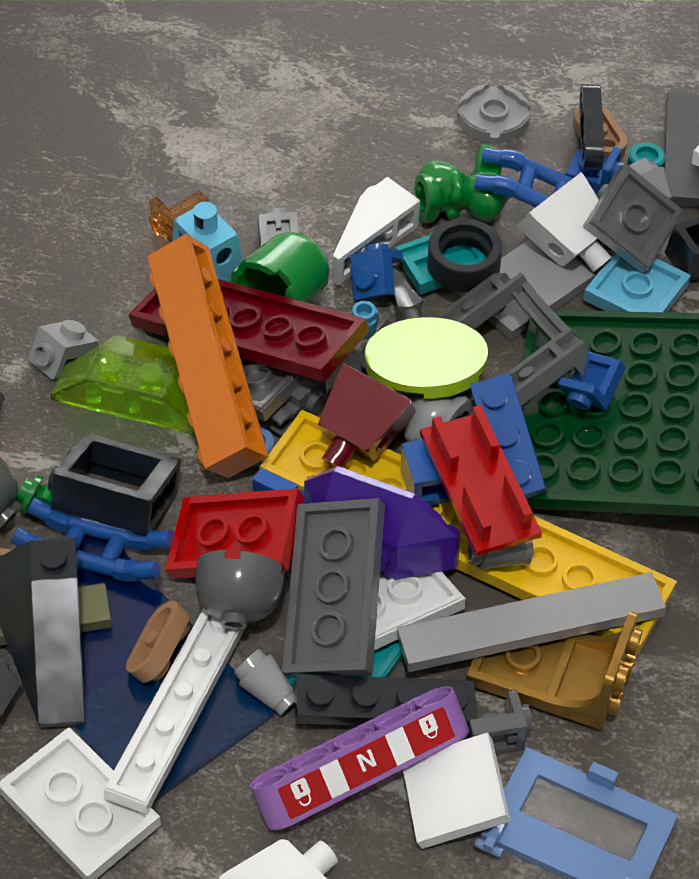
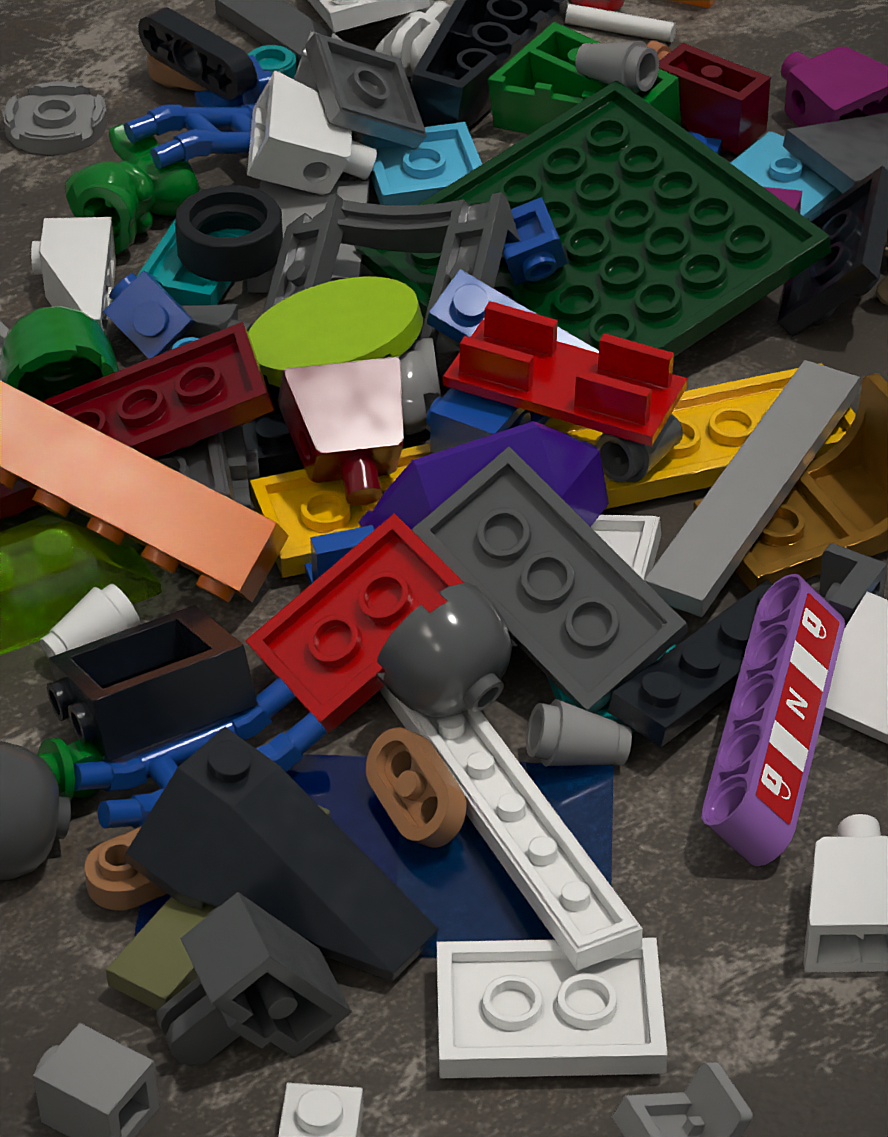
camera: 45 degrees left, 10 degrees down
(141, 430) = (92, 618): none -> white cone

